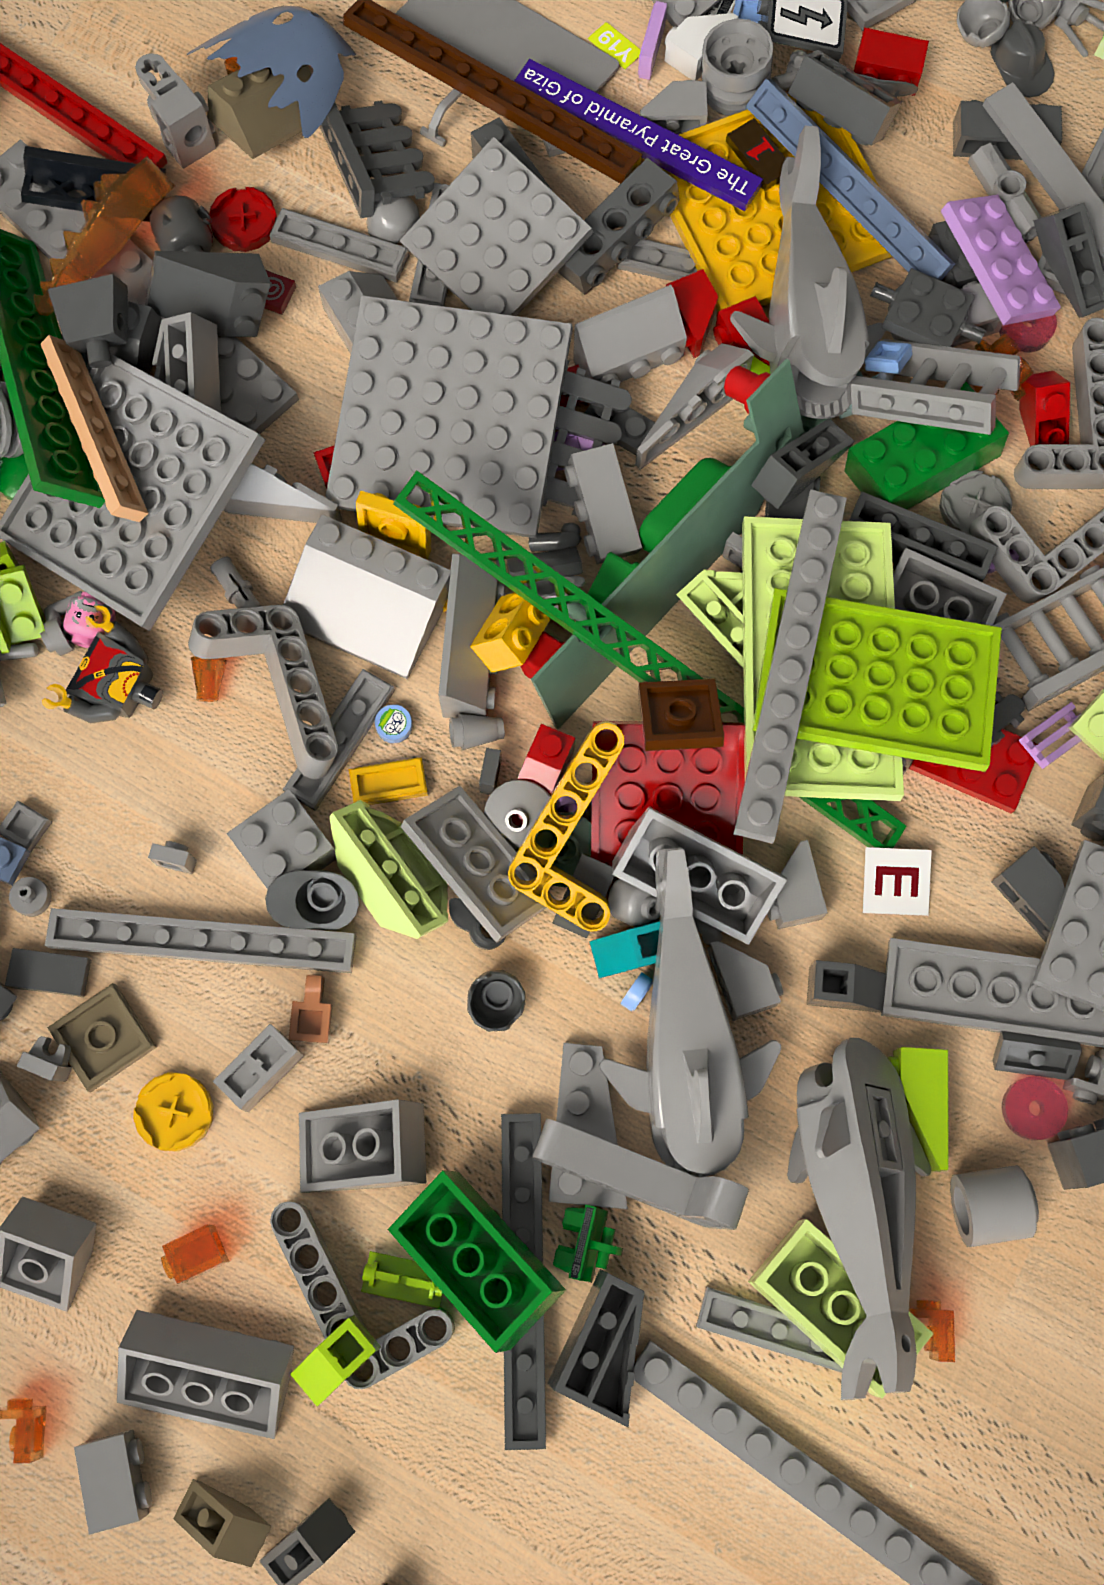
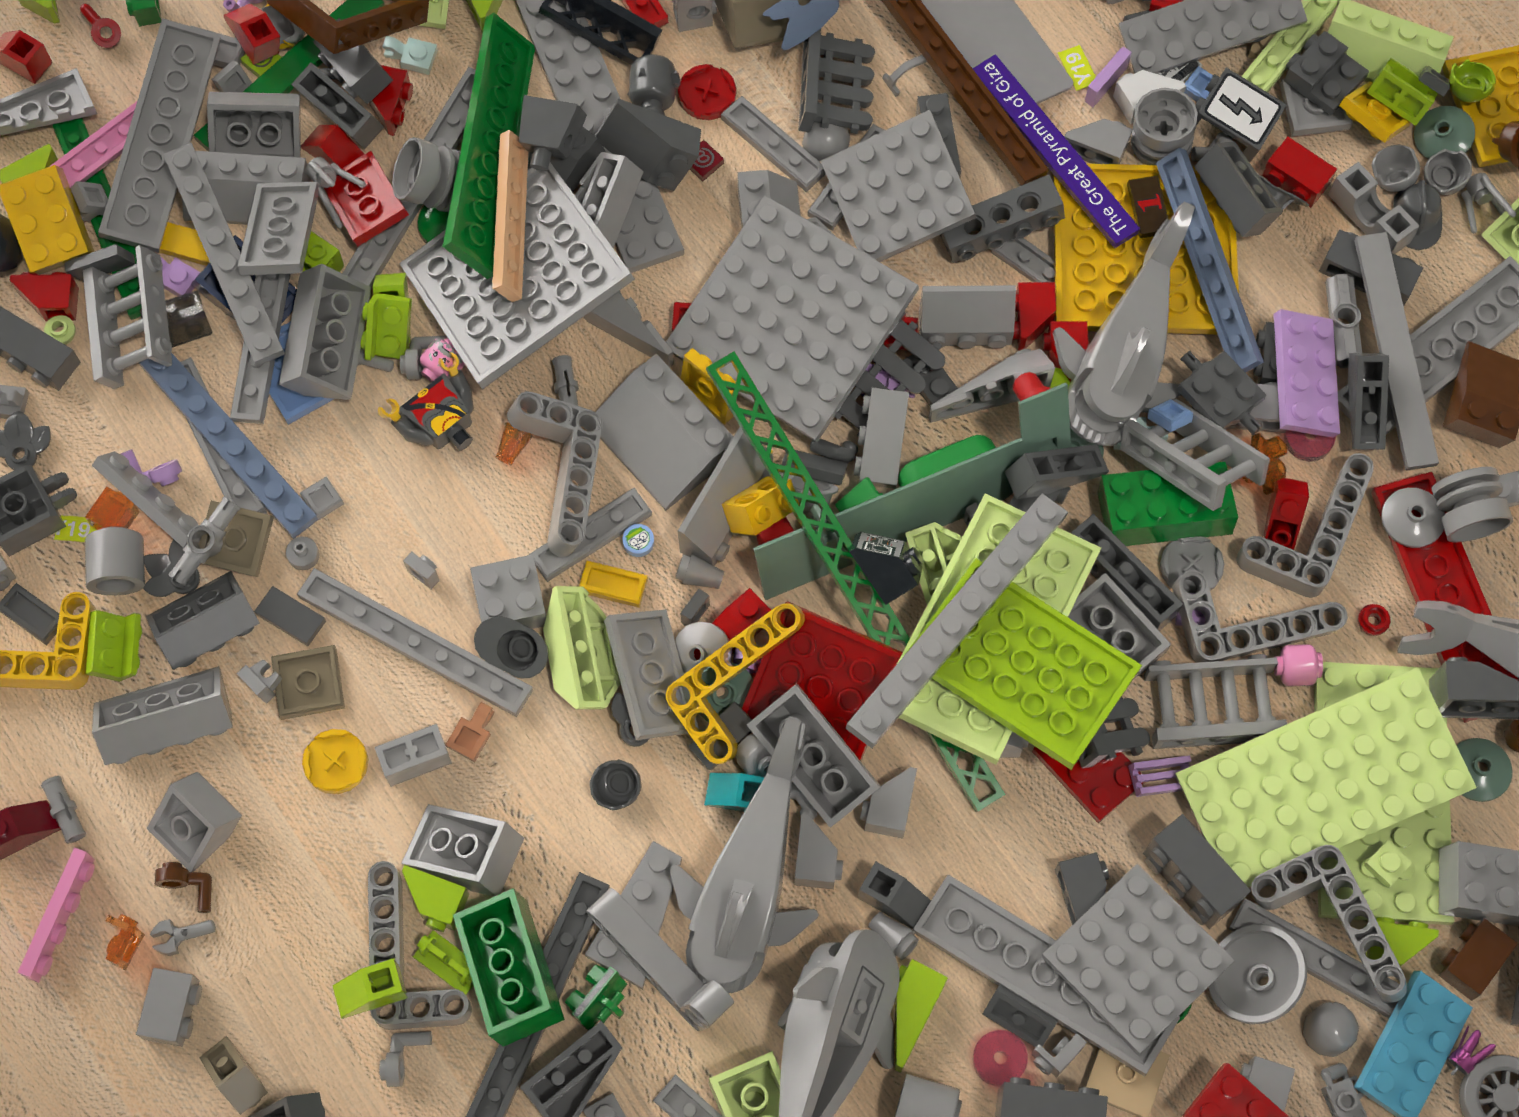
camera: 25 degrees right, 5 degrees down
(51, 1325) = (174, 876): none -> reddish brown plate
(86, 1389) = (179, 934): none -> light grey bar
(108, 225) = (596, 59): clear orange animal -> none
(194, 1254) = (302, 872): clear orange brick -> none
(203, 1373) = (269, 962): light grey slope -> none
(357, 1216) = (435, 898): none -> lime slope
(398, 1429) = (393, 1067): none -> light grey plate
(637, 992) = (724, 829): light blue tile -> none
(680, 714) = (854, 623): reddish brown plate -> none
(684, 635) = (887, 564): none -> black slope
(867, 1026) = (899, 937): none -> light grey cone
(897, 881) = (976, 834): white sticker -> none
(961, 66) = (1356, 195): none -> light grey arch

